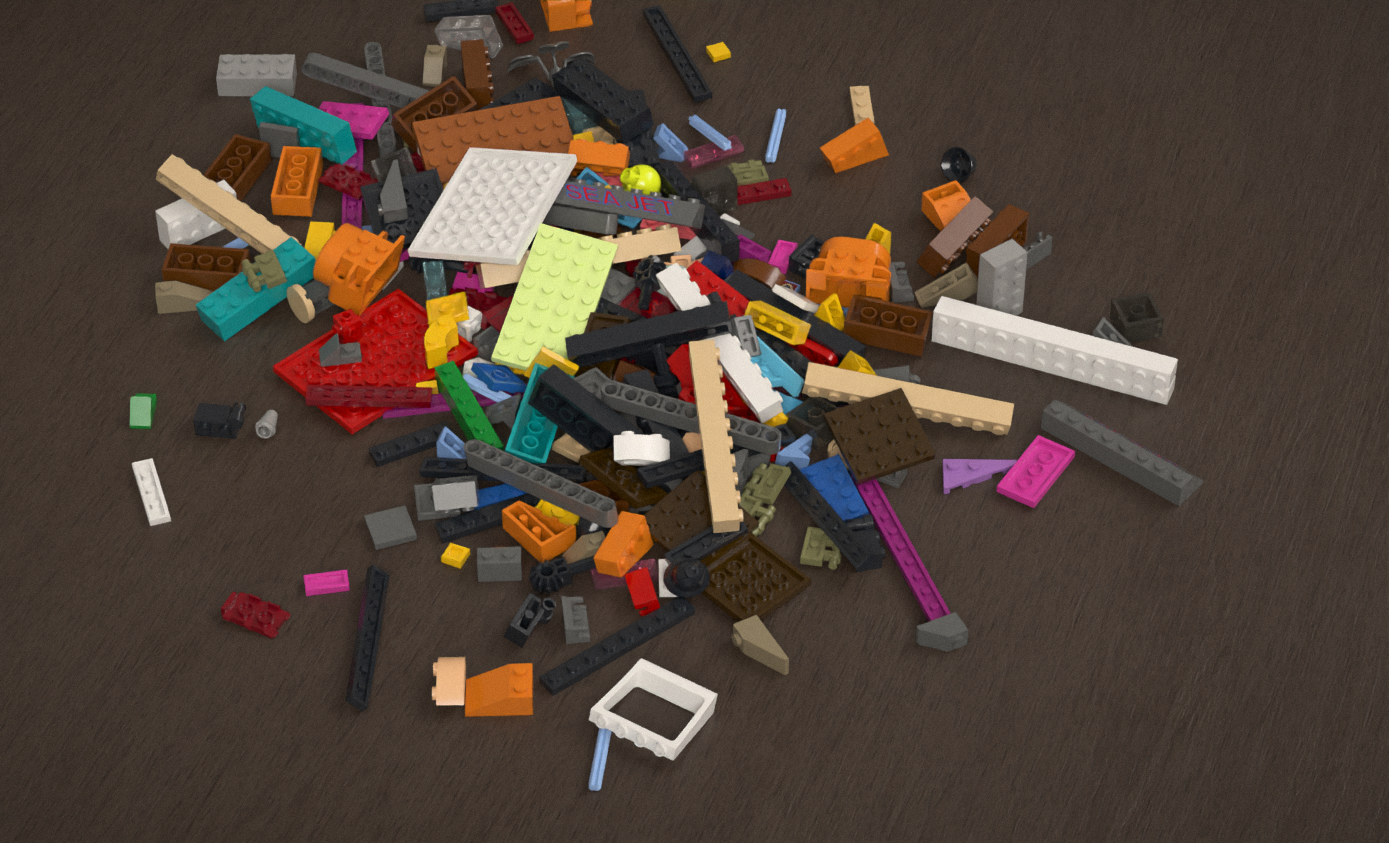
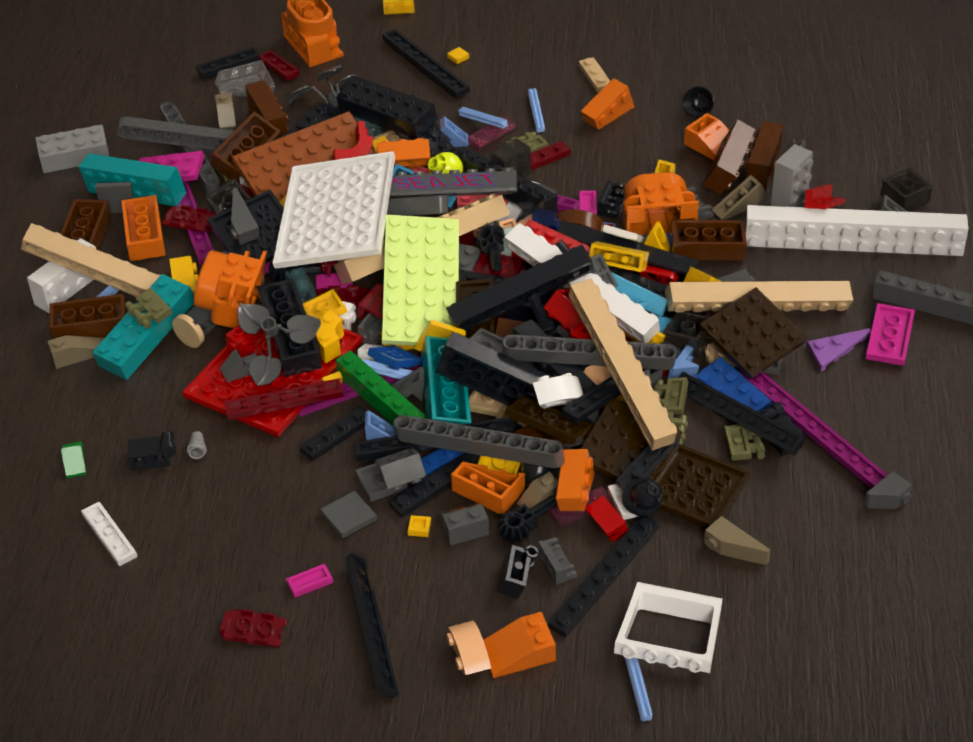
camera: 15 degrees left, 0 degrees up
(366, 306) = (257, 317): none -> dark grey plant
(402, 322) = (283, 303): none -> black brick
(555, 144) = (362, 147): none -> red arch
(1032, 305) = (821, 197): none -> red fence

